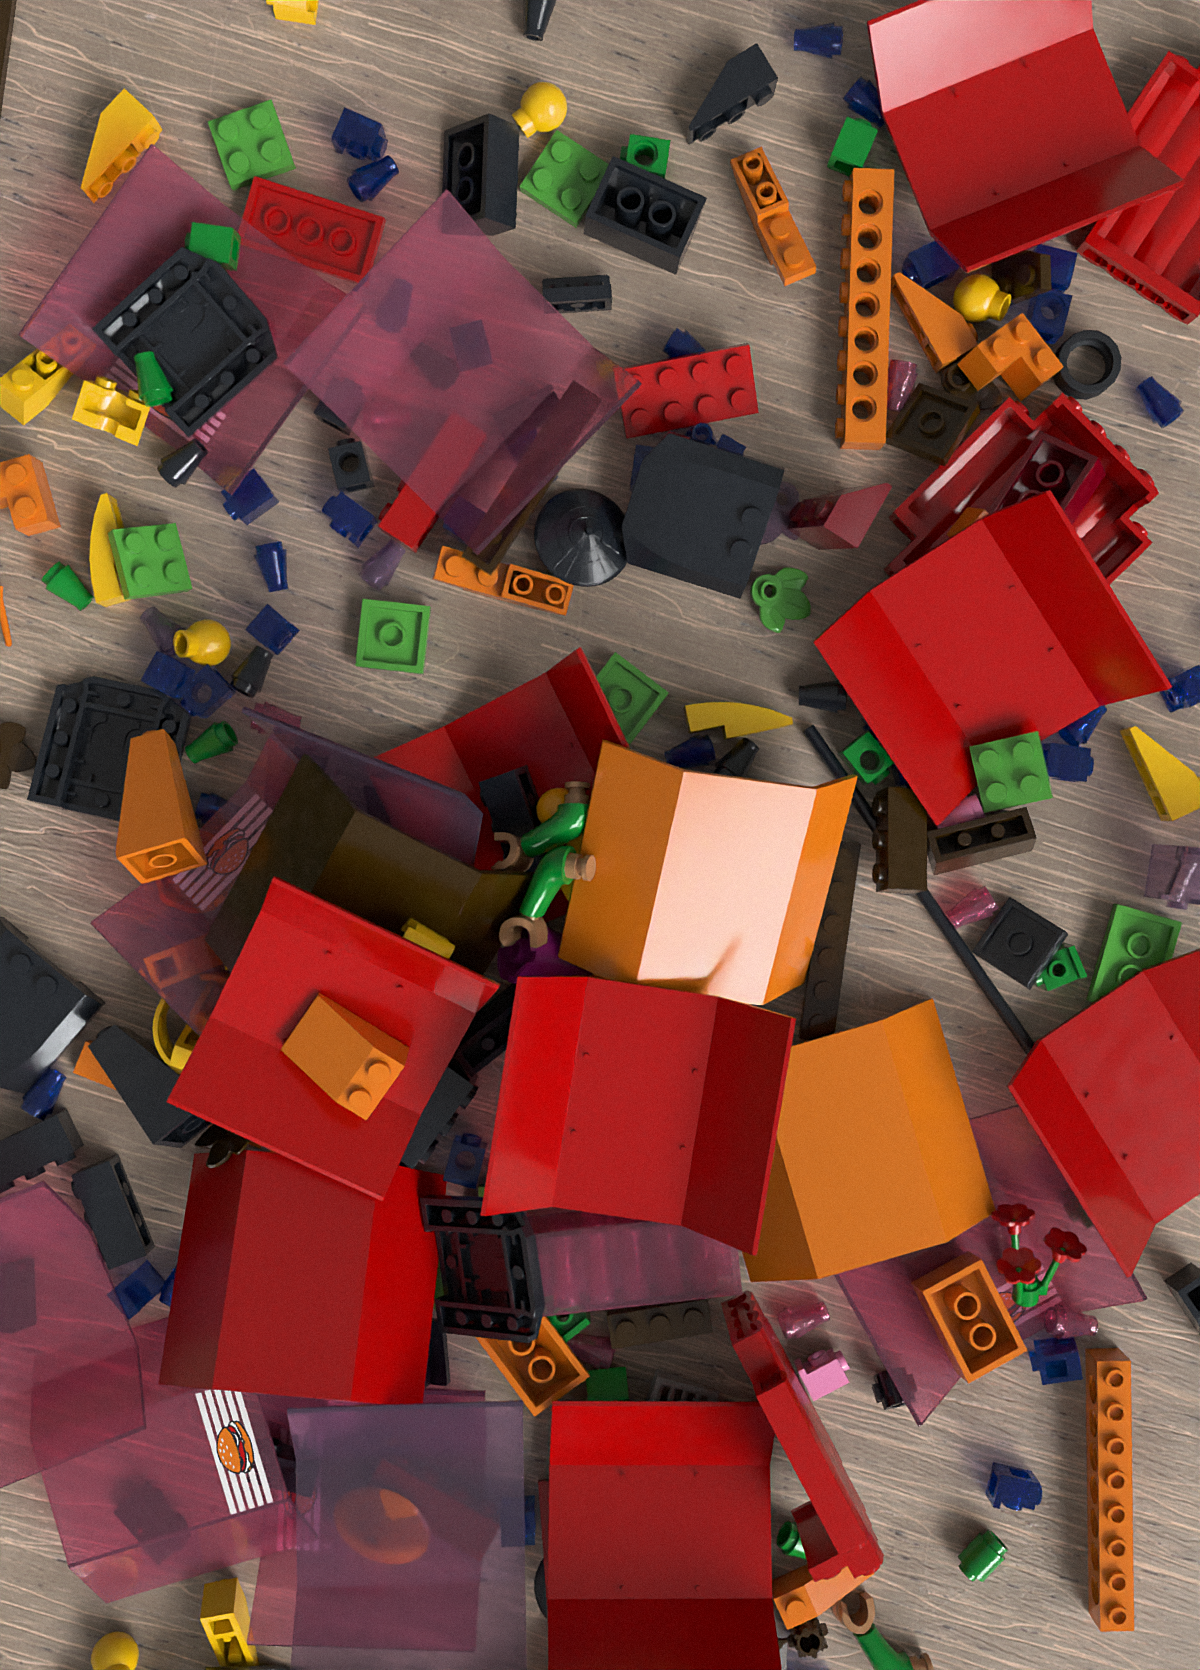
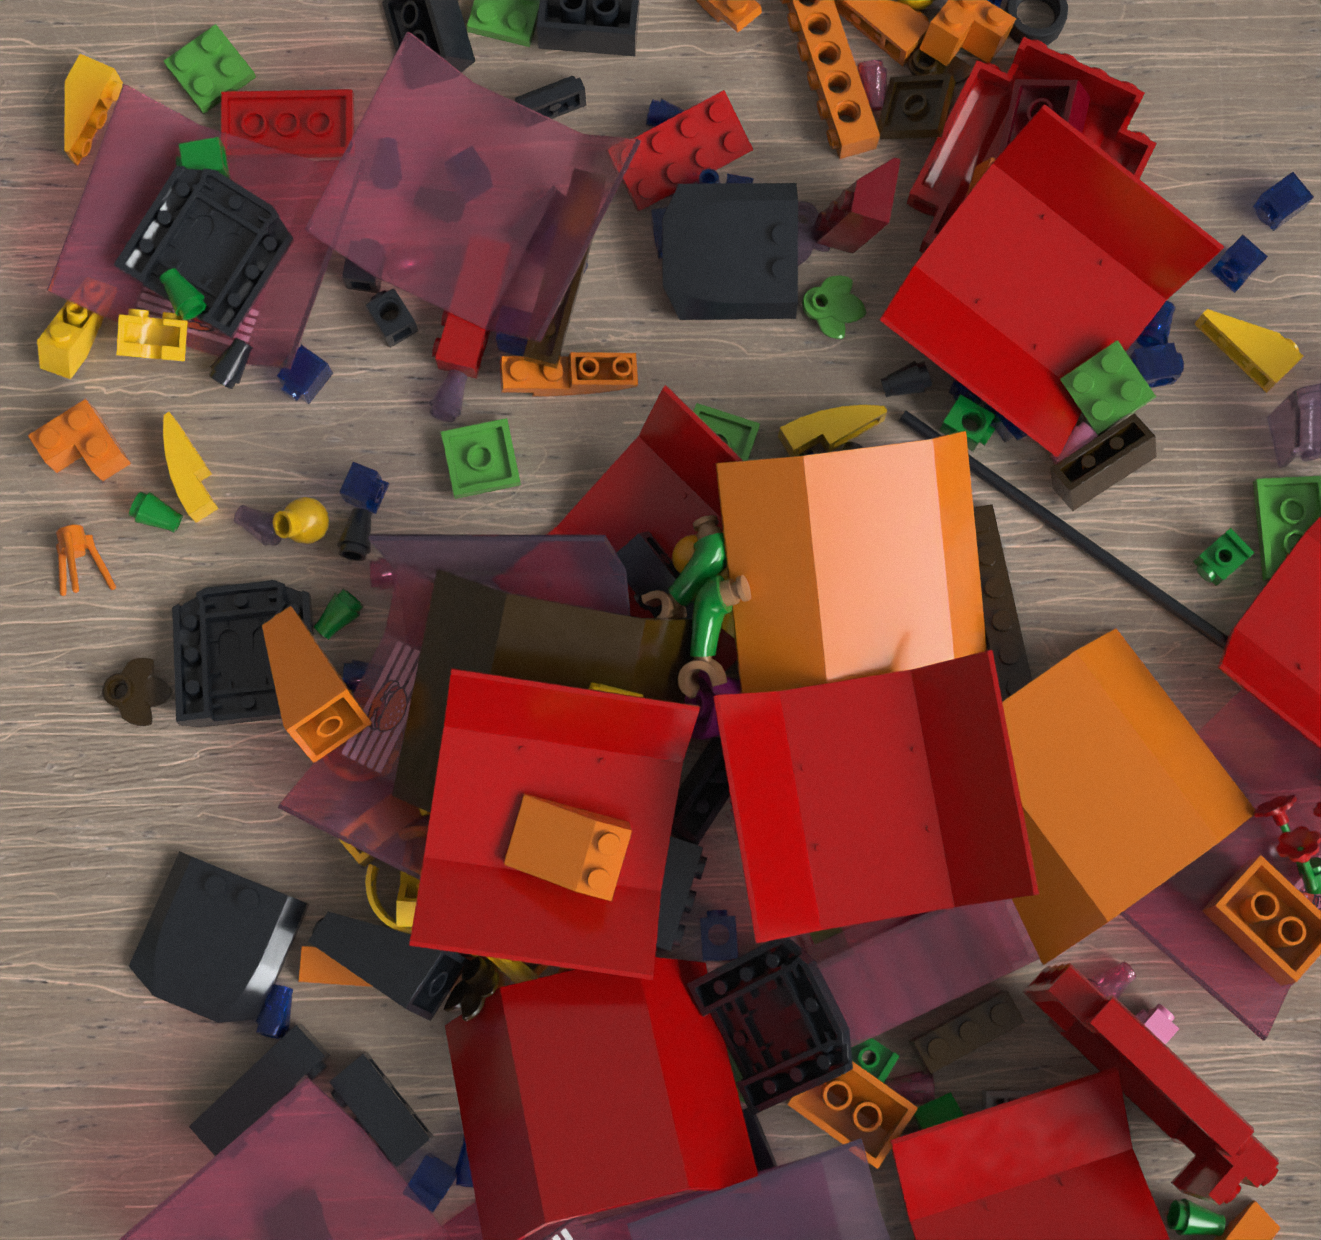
camera: 25 degrees left, 10 degrees down
(149, 561) = (228, 461): bright green plate -> none
(167, 674) = (277, 562): clear blue brick -> none
(220, 692) = (314, 553): clear blue brick -> none
(273, 565) = (345, 429): clear blue cone -> none
(349, 518) = (404, 363): clear blue brick -> none
(359, 136) = (307, 29): clear blue brick -> none
(372, 178) = (327, 64): clear blue cone -> none
(581, 537) = (629, 311): black hat -> none
(886, 1391) = (1223, 1026): black gear -> none
(899, 842) = (1028, 487): dark brown brick -> none
(972, 908) = (1122, 527): clear pink cone -> none
(1020, 943) = (1178, 545): black tile -> none
(1159, 402) = (1117, 26): clear blue cone -> none

